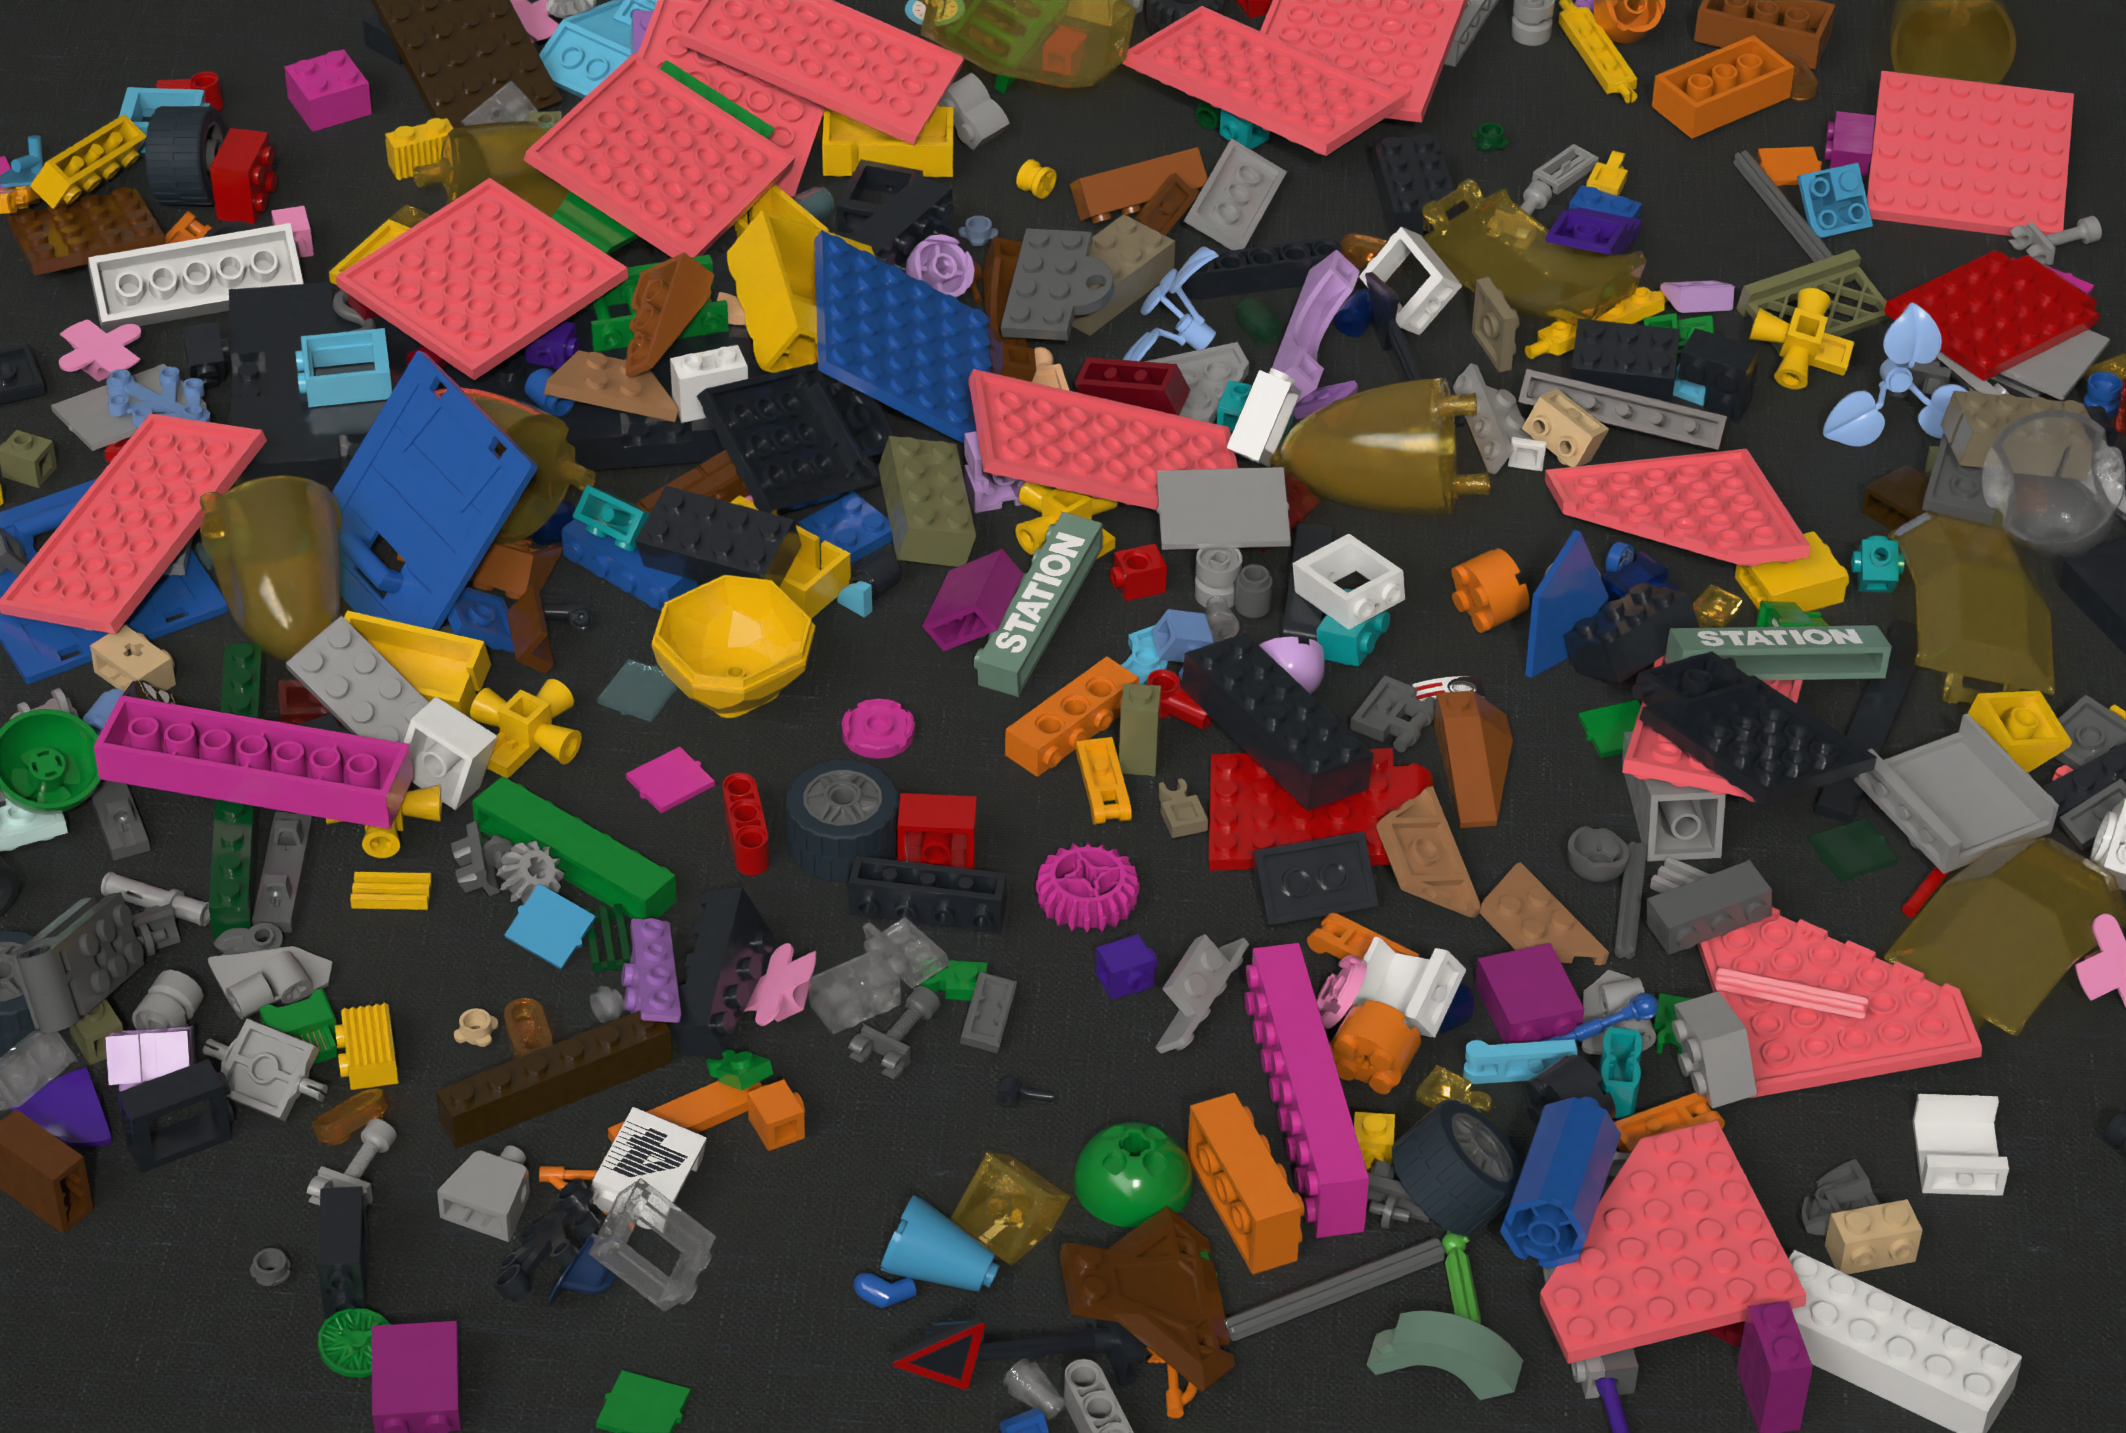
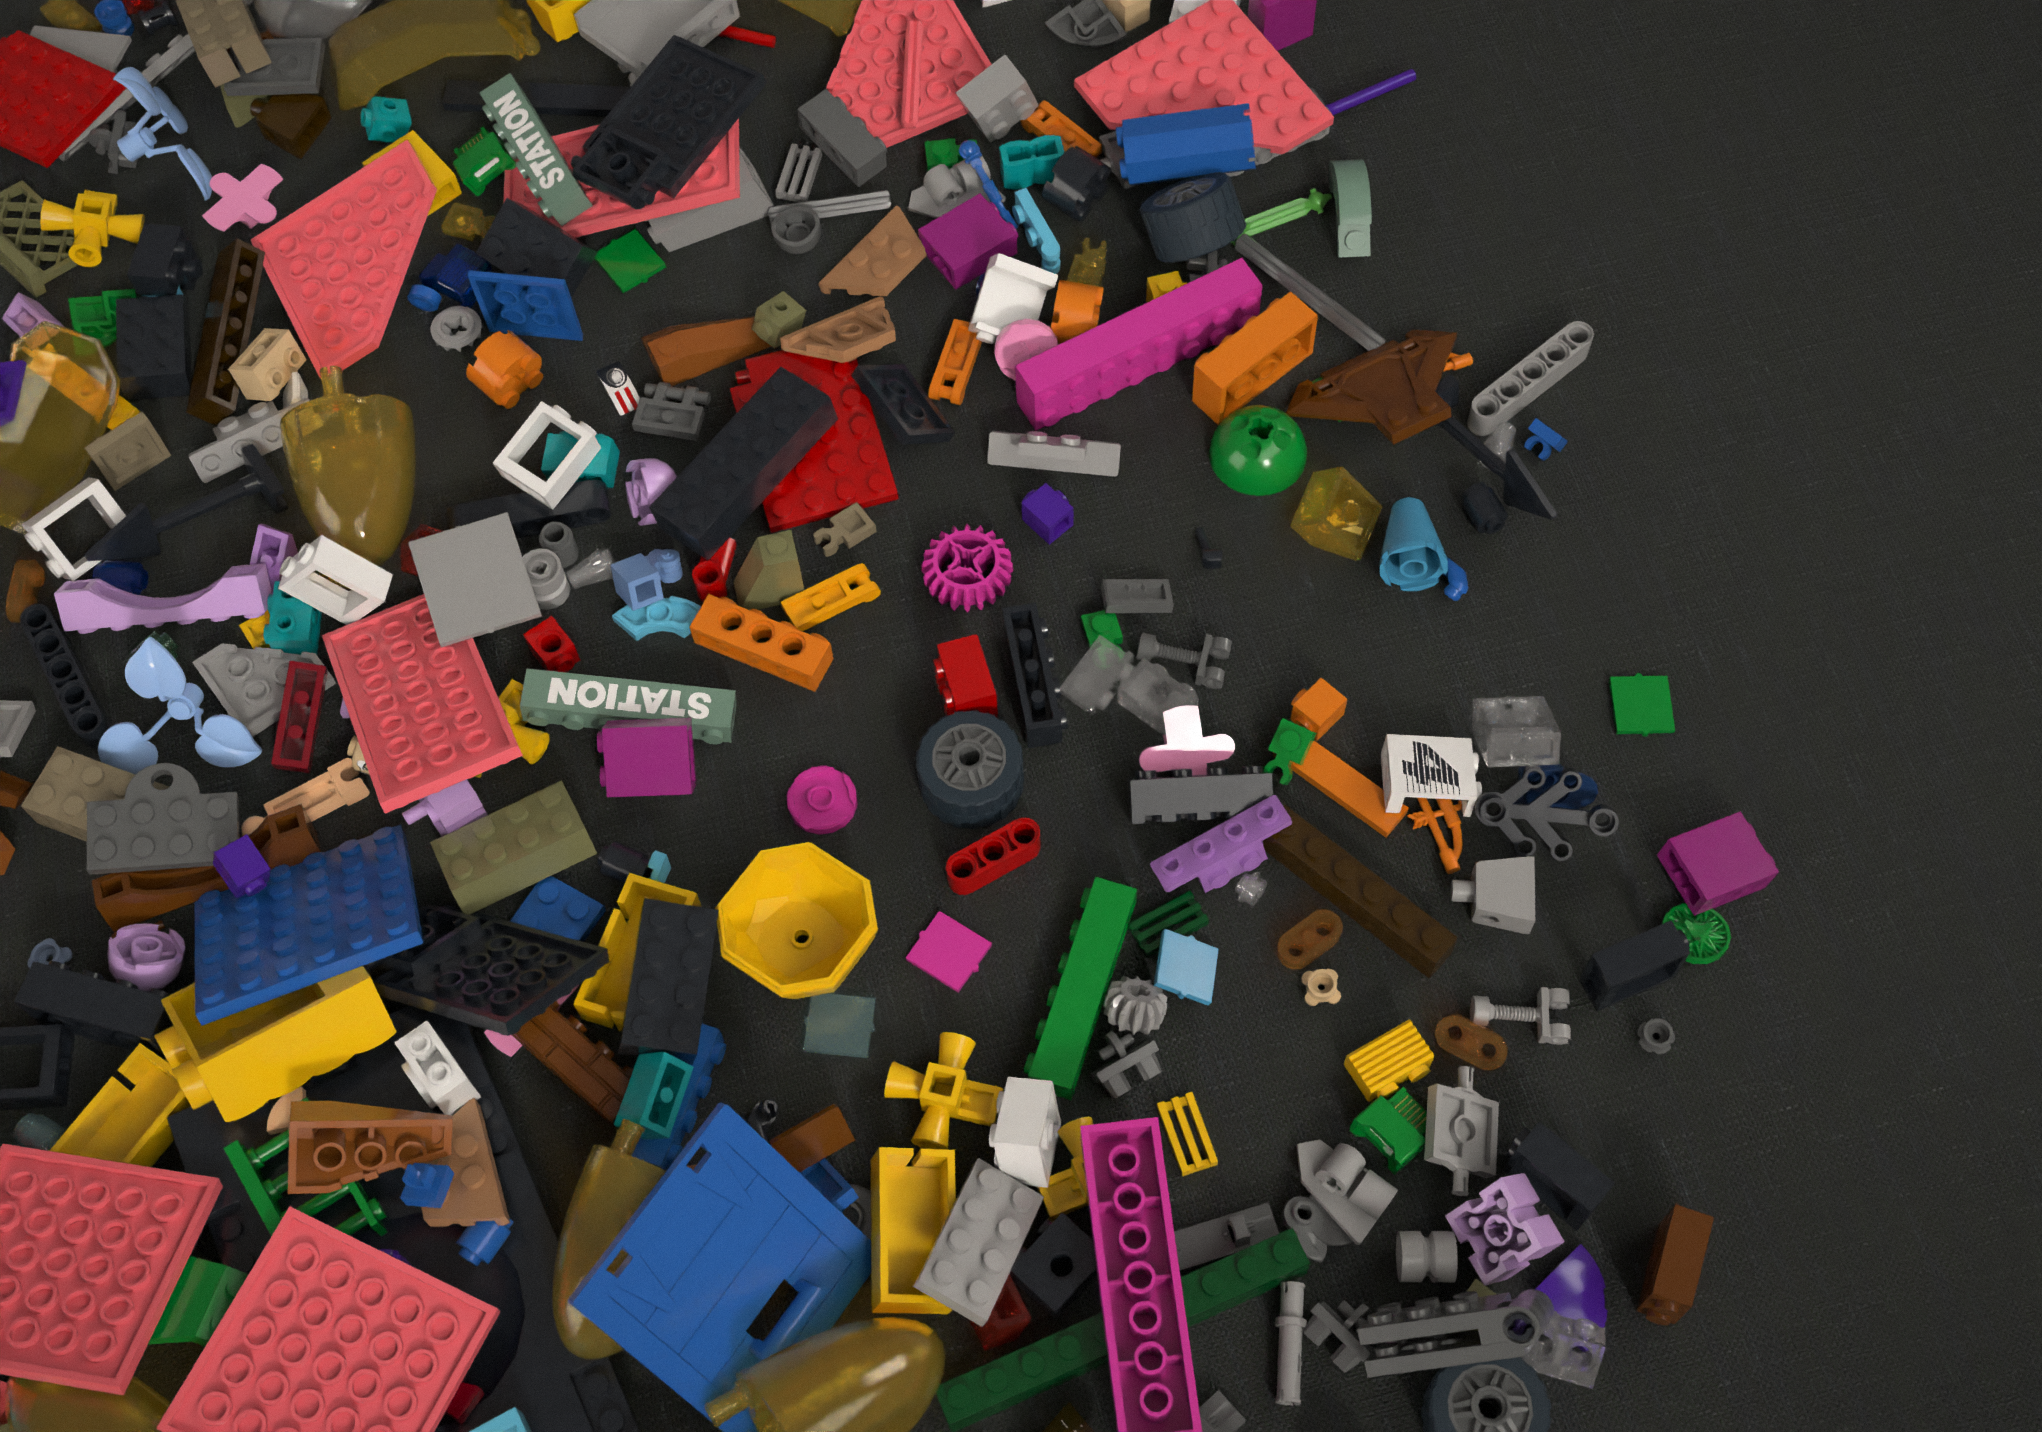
camera: 105 degrees left, 20 degrees up
(604, 349) = (426, 1184): none -> blue tile
(981, 318) = (242, 867): none -> dark purple brick
(1473, 809) = (778, 318): none -> olive brick
(1801, 451) = (243, 200): none -> bright pink piece

